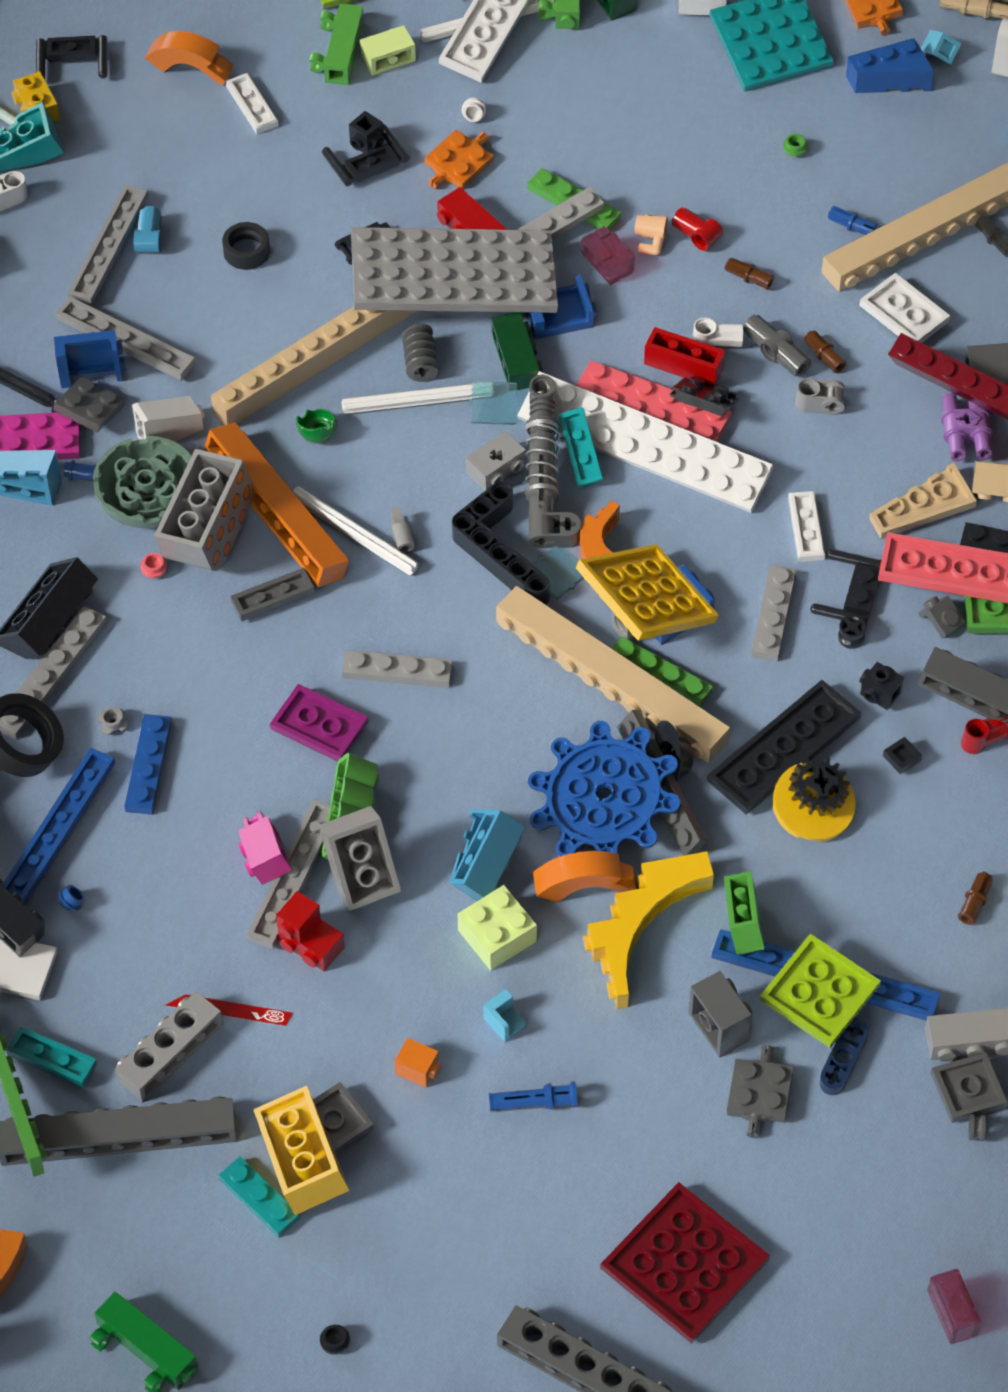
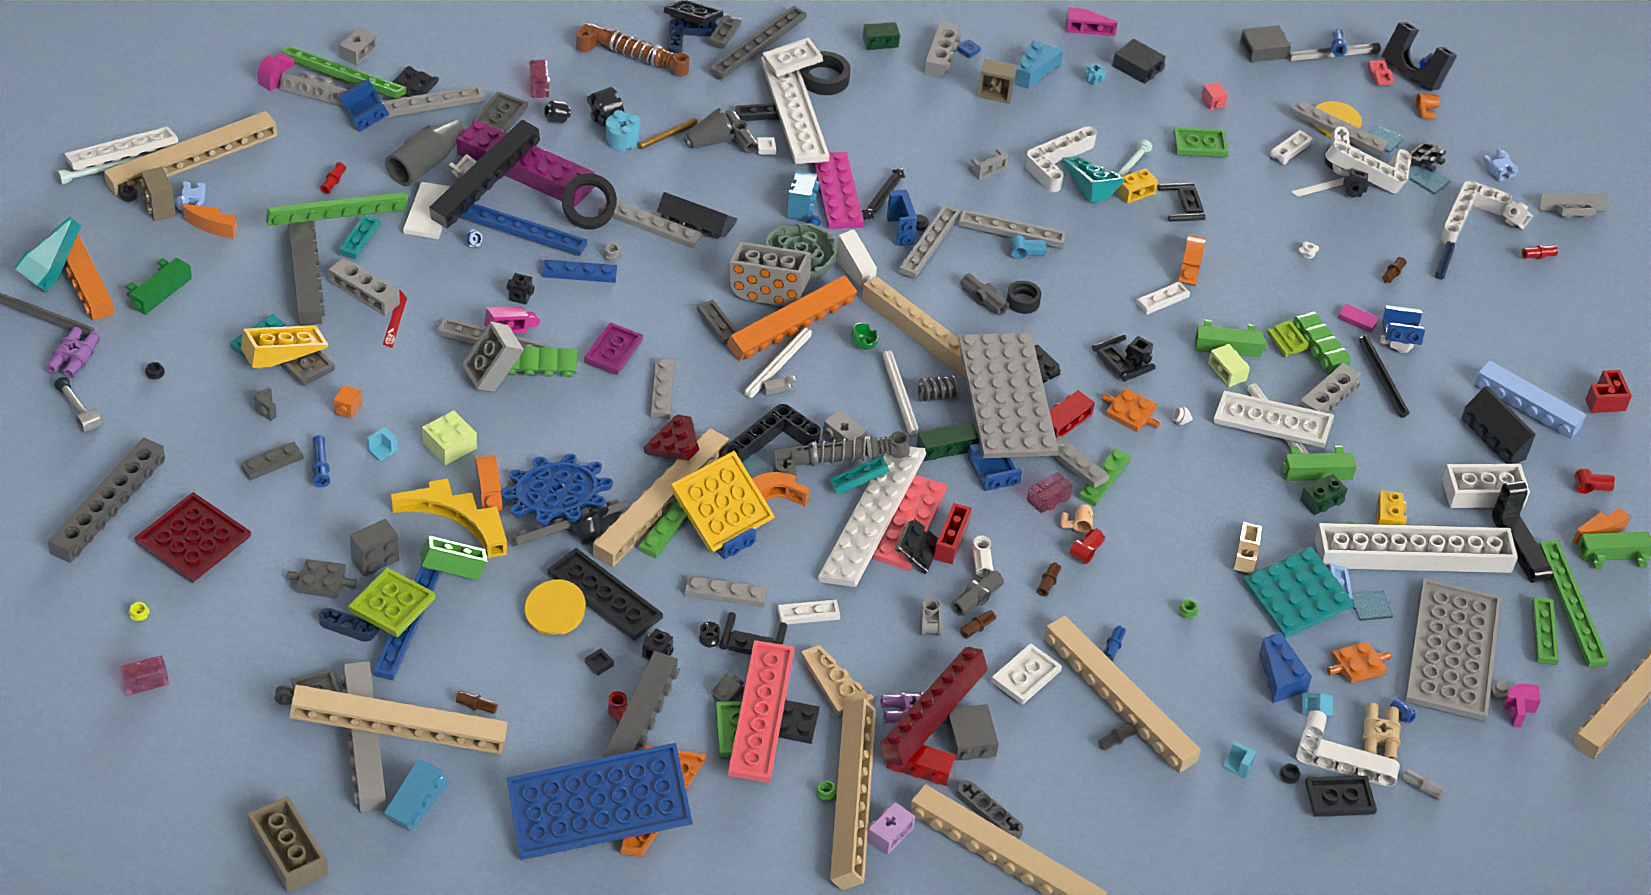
camera: 80 degrees right, 10 degrees down
(89, 404) = (868, 224): dark grey plate -> none
(191, 834) = (520, 288): none -> black brick
(237, 287) = (984, 294): none -> dark grey piece
(307, 934) = (446, 343): red brick -> none
(423, 1175) = (264, 404): none -> dark grey bracket
(486, 852) = (505, 426): dark azure wedge -> none
(493, 403) = (903, 424): clear light blue piece -> none
(510, 649) = (675, 440): none -> dark red plate
(527, 1165) = (272, 460): none -> dark grey plate
(698, 75) = (1248, 548): none -> tan slope
(810, 790) = (560, 600): black gear -> none
(832, 1320) = (138, 611): none -> neon yellow plate

